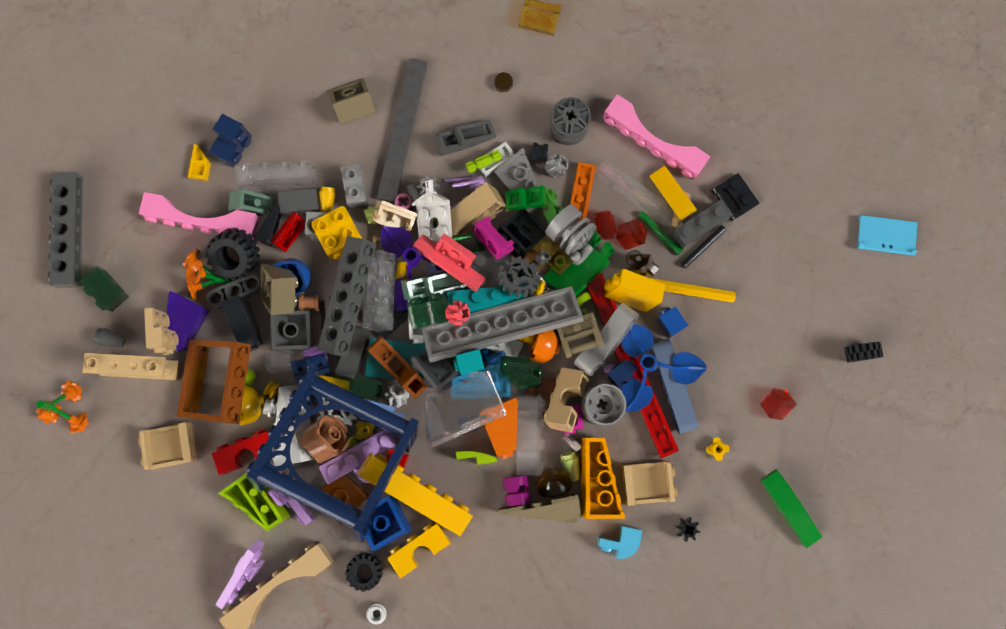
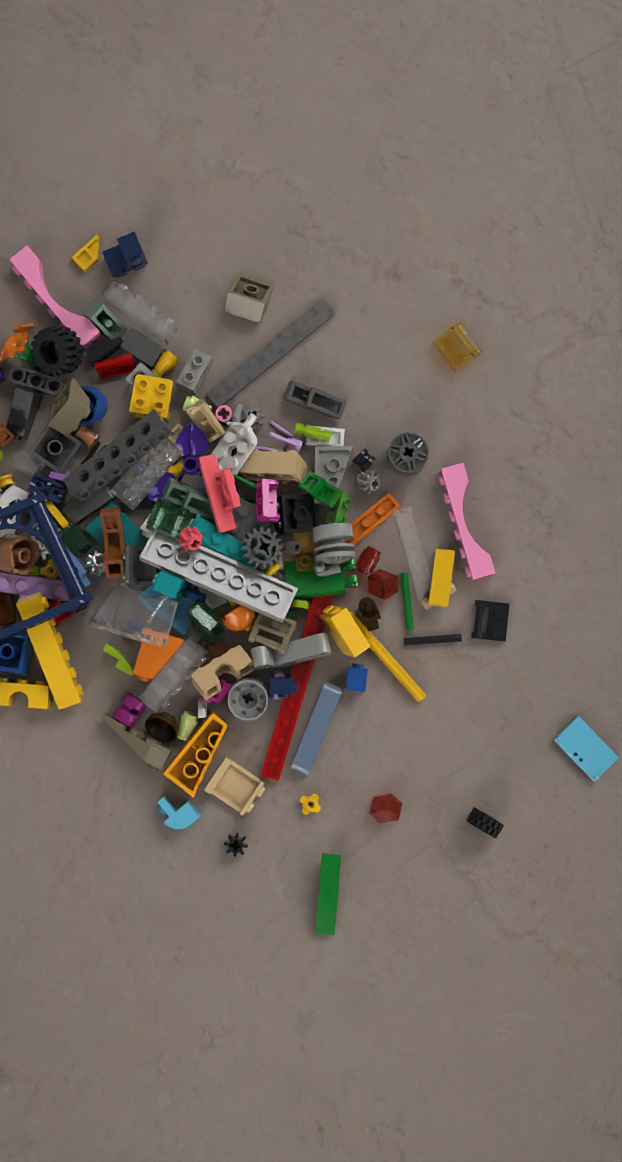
camera: 40 degrees right, 5 degrees up
(503, 82) = (383, 378): dark brown tile -> none
(685, 367) = (280, 709): blue plant -> none
(701, 224) = (444, 621): dark grey arch -> none

